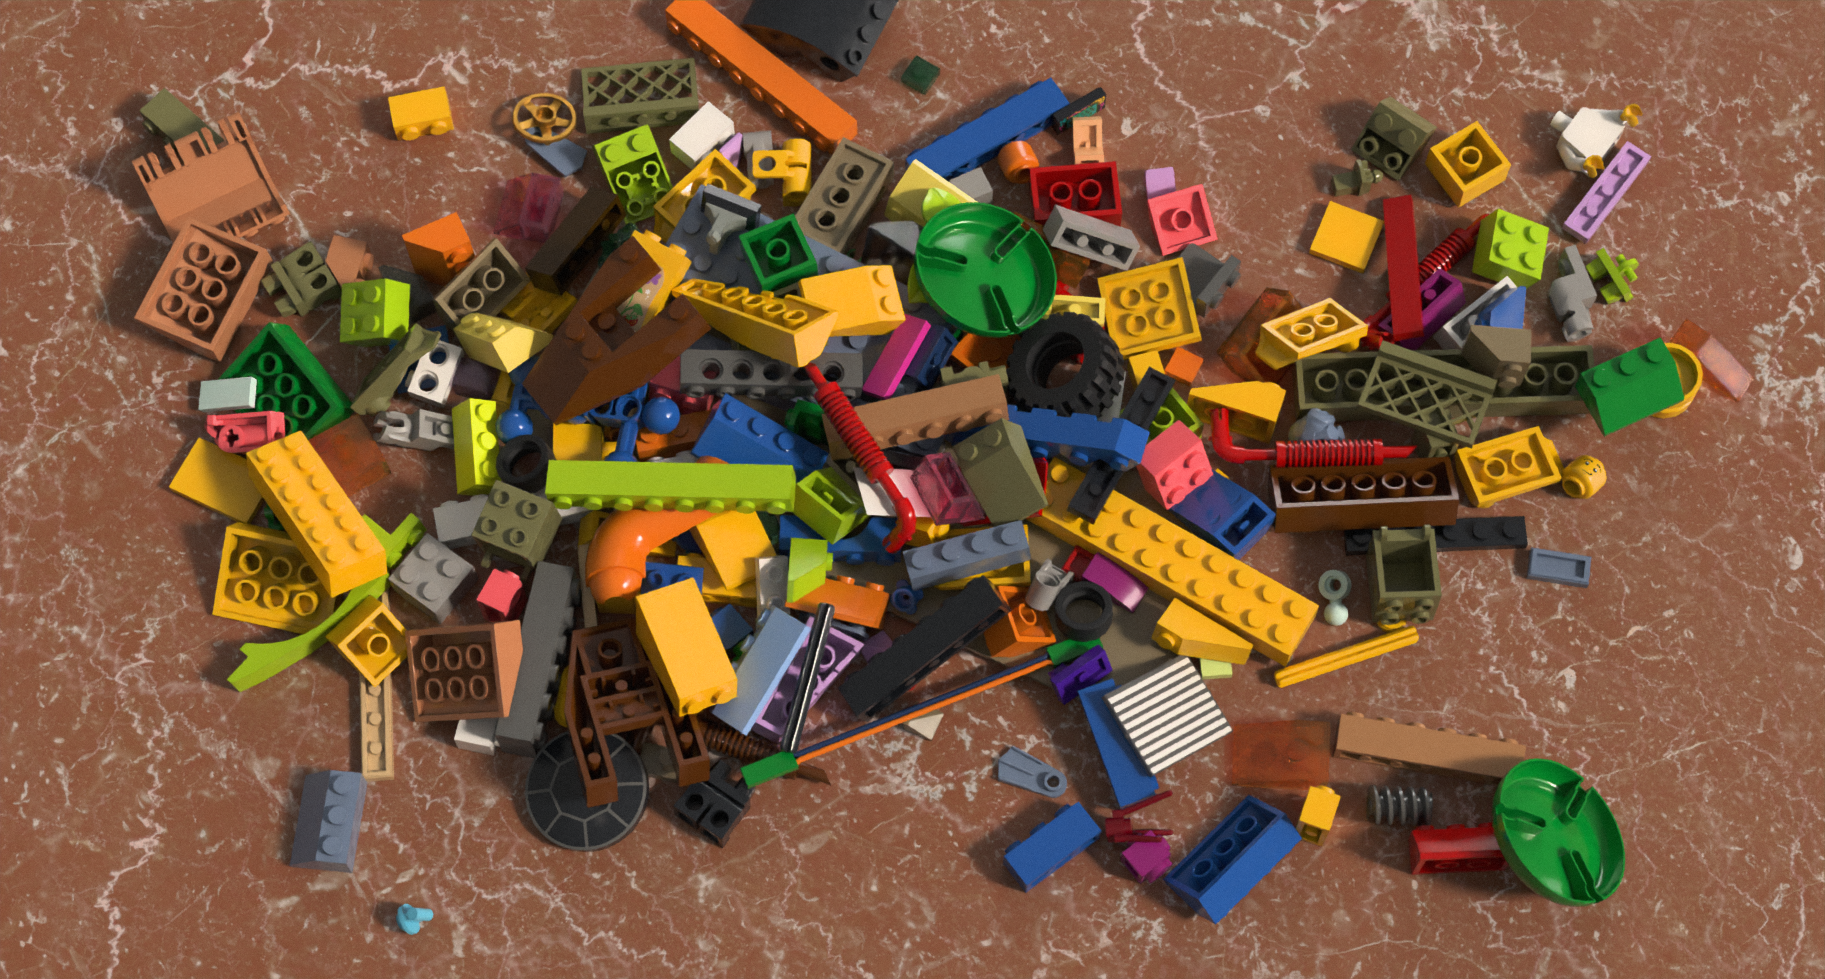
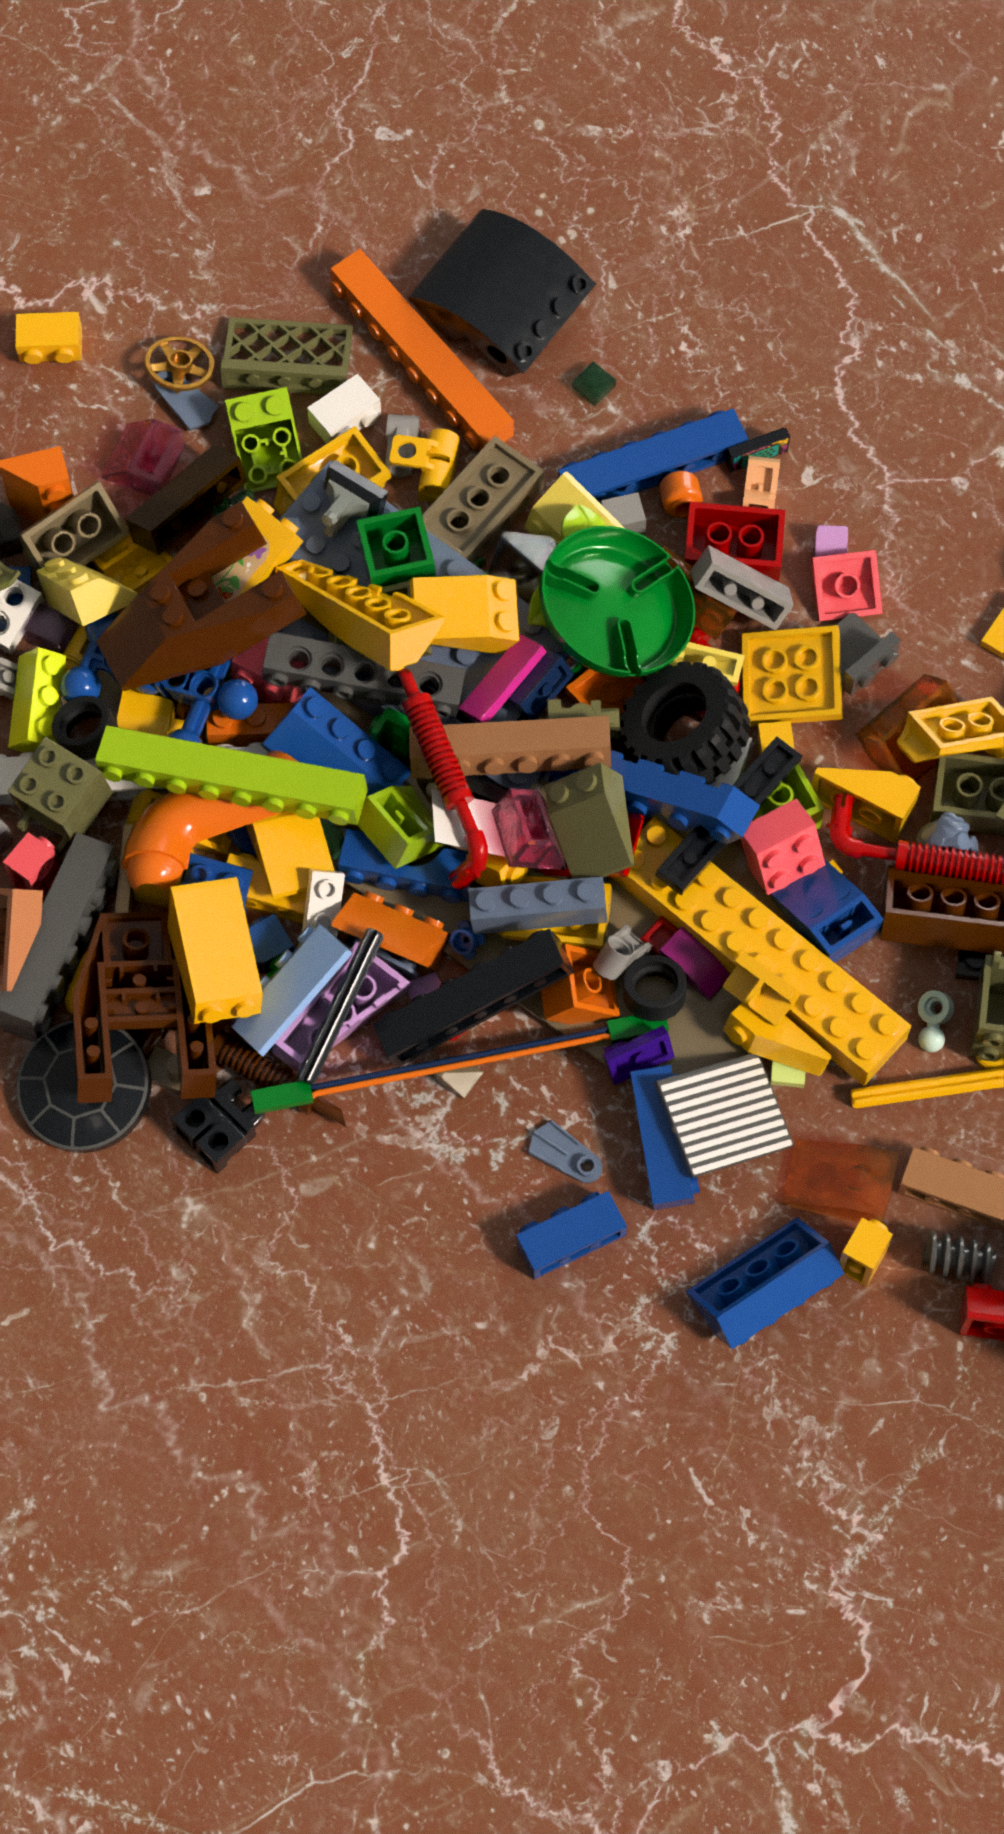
camera: 10 degrees right, 0 degrees up
(733, 149) = (375, 431): lavender slope -> none
(807, 566) = (363, 888): lime slope -> none
(1121, 829) = (649, 1228): dark red plant -> none
(1147, 859) = (672, 1264): magenta brick -> none
(1180, 596) = (761, 989): none -> yellow panel
(1183, 366) = (818, 744): orange tile -> none

